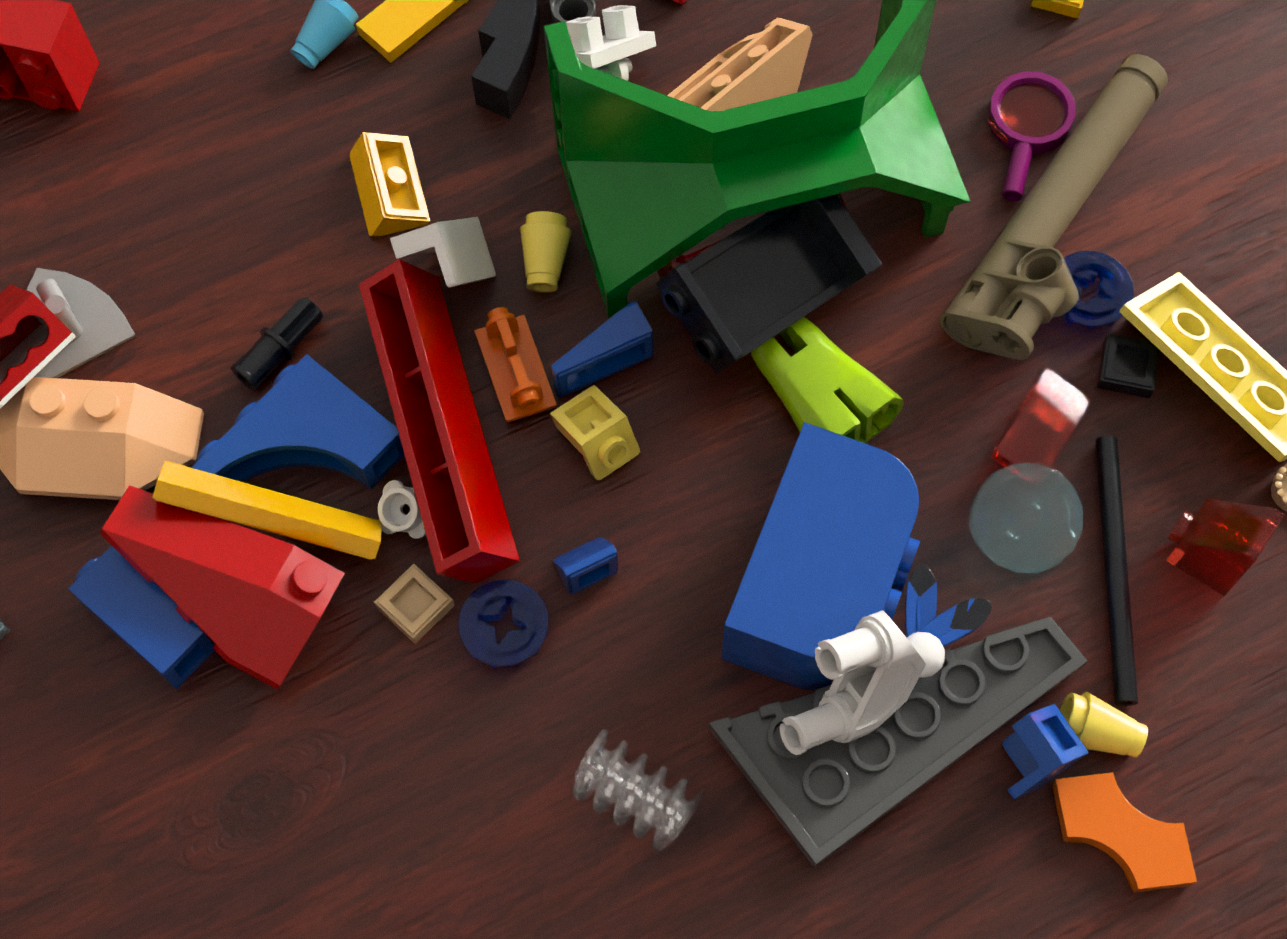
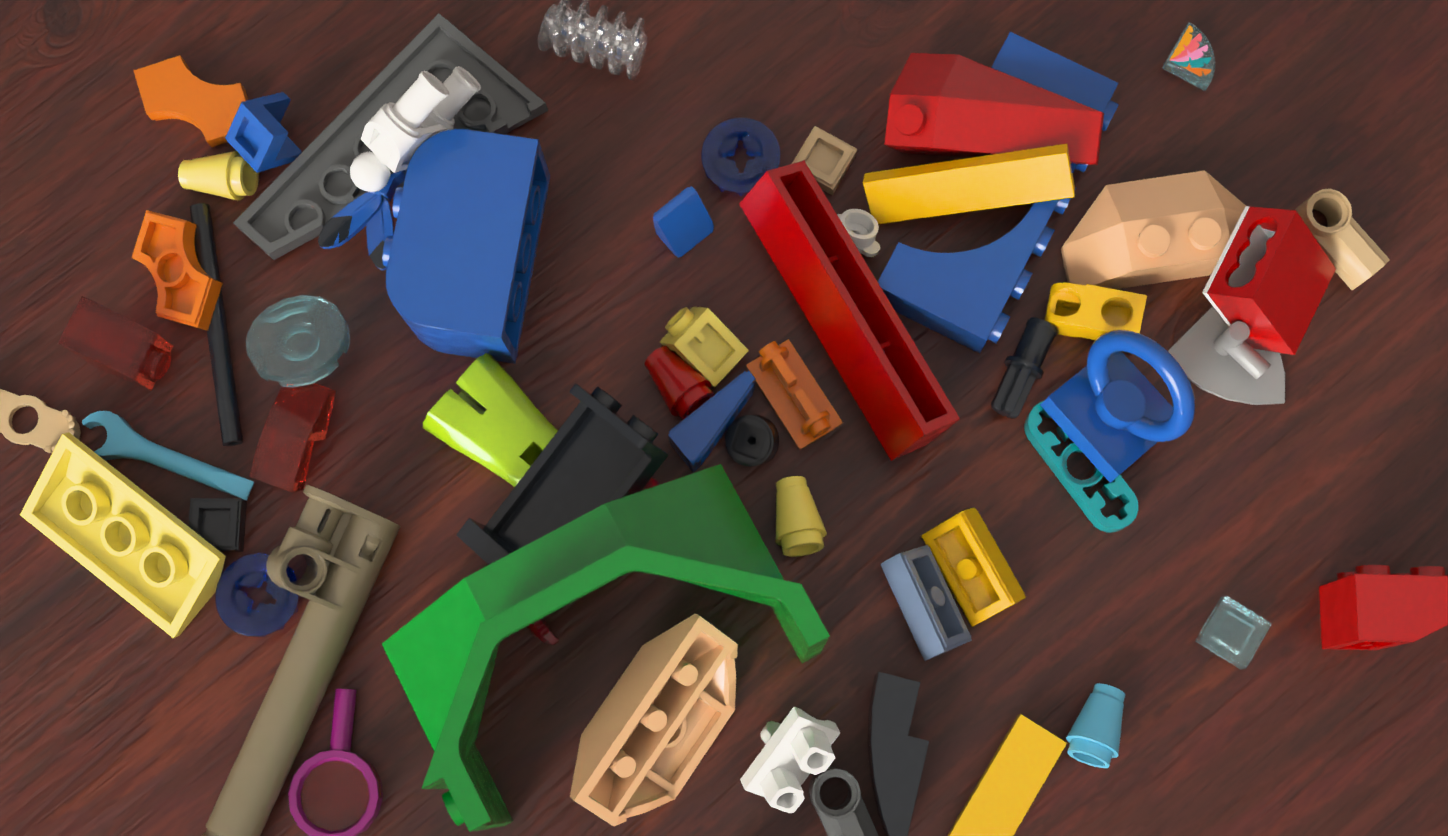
camera: 170 degrees right, 10 degrees up
(173, 84) = (1233, 632): none -> clear light blue tile
(185, 371) = (1093, 310): none -> yellow leg
(203, 275) = (1115, 409): none -> blue tile
(252, 266) = (1090, 506): none -> teal beam
(444, 156) = (926, 602): none -> sand blue brick
(458, 247) = (886, 479): white panel -> none
(567, 326) = (752, 440): none -> black tile
(630, 391) = (678, 382): none -> red cone
(1163, 649) = (182, 285): none -> orange tile
(1218, 462) = (126, 443): none -> medium azure piece

